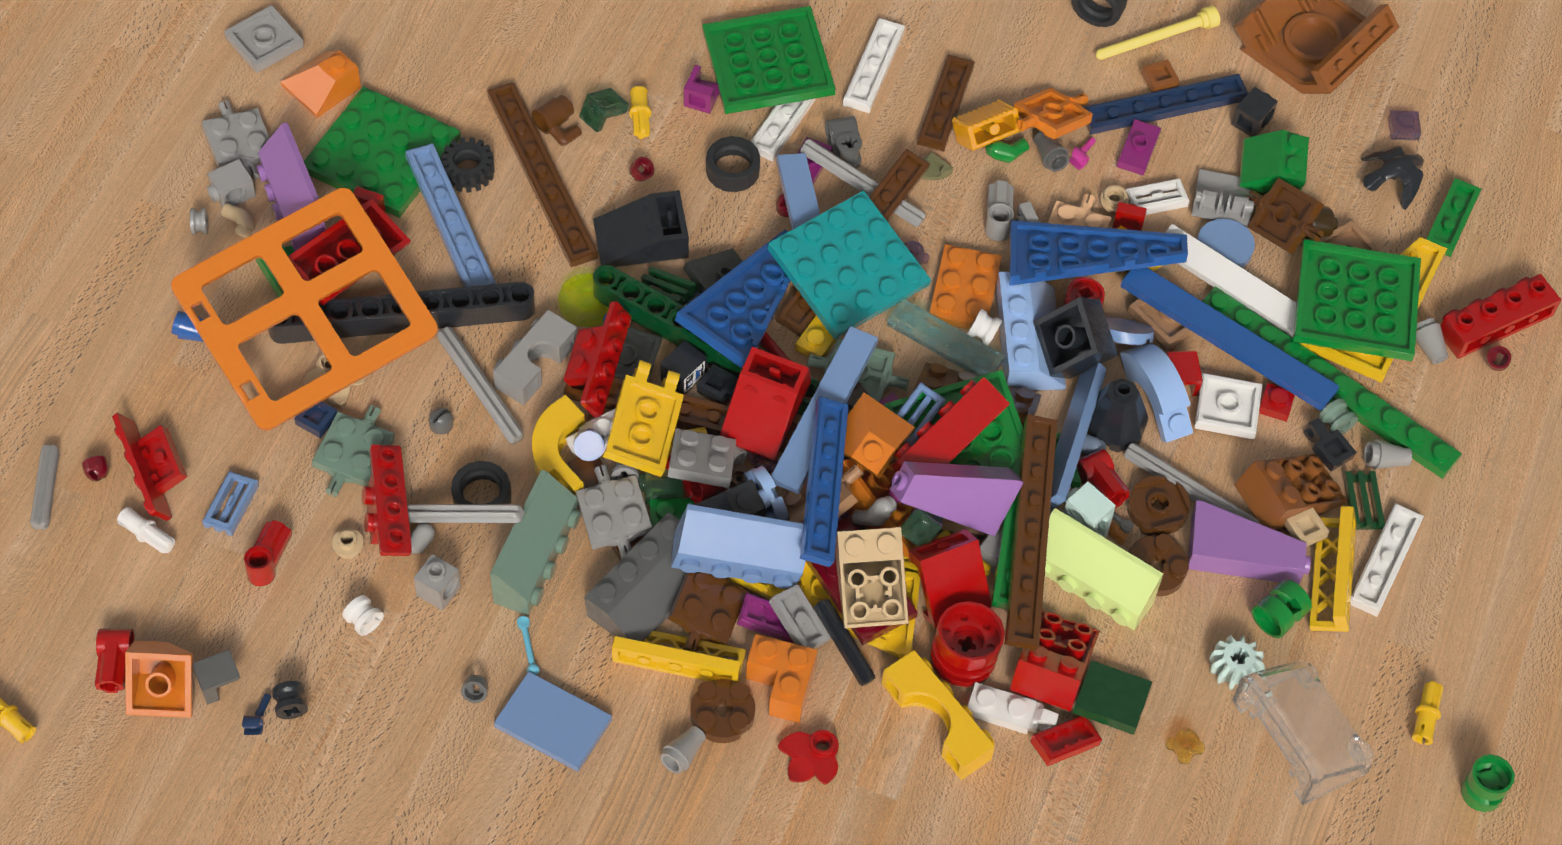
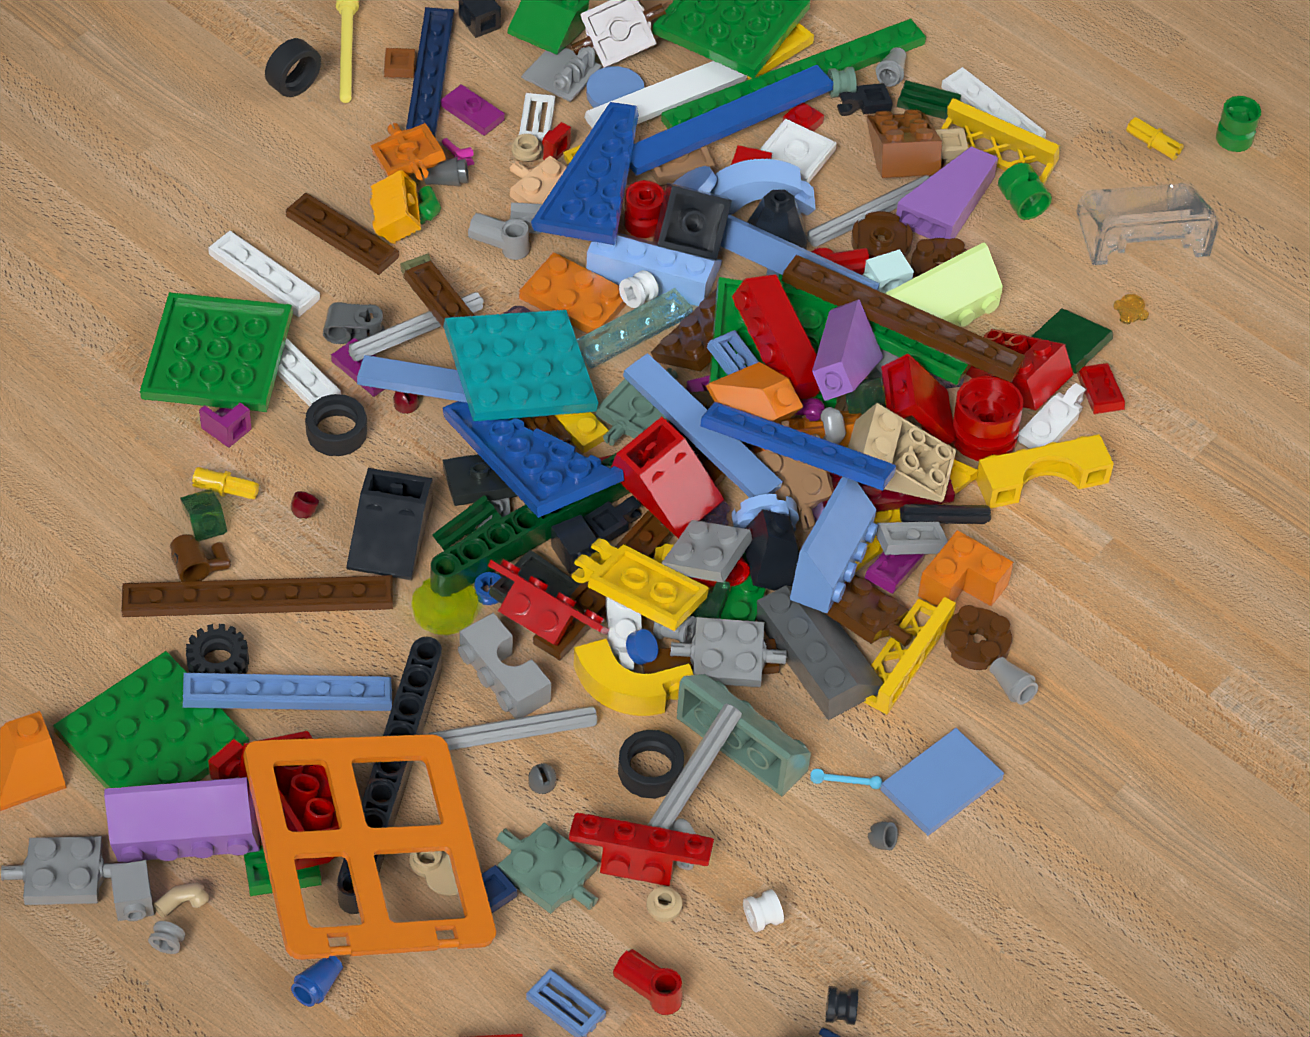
camera: 70 degrees left, 5 degrees down
(437, 582) = (751, 830): light grey brick -> none
(808, 759) = (1053, 587): red plate -> none
(1245, 658) = (1065, 242): light aqua gear -> none

